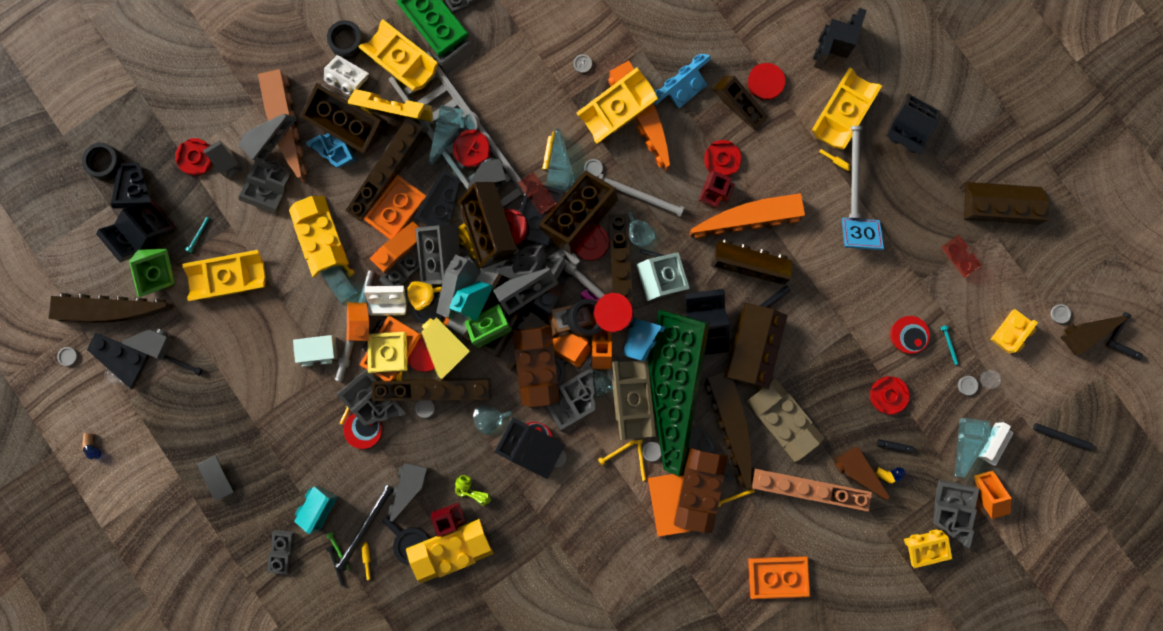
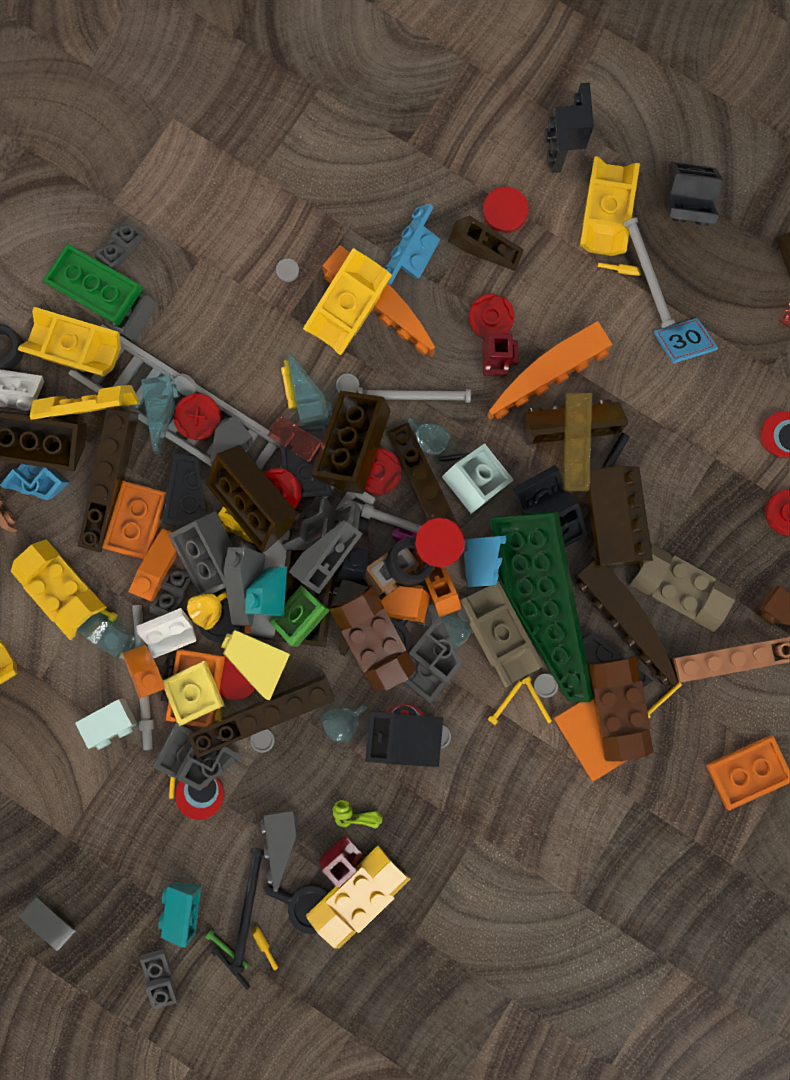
camera: 20 degrees left, 0 degrees up
(746, 277) = (577, 441): none -> clear yellow tile

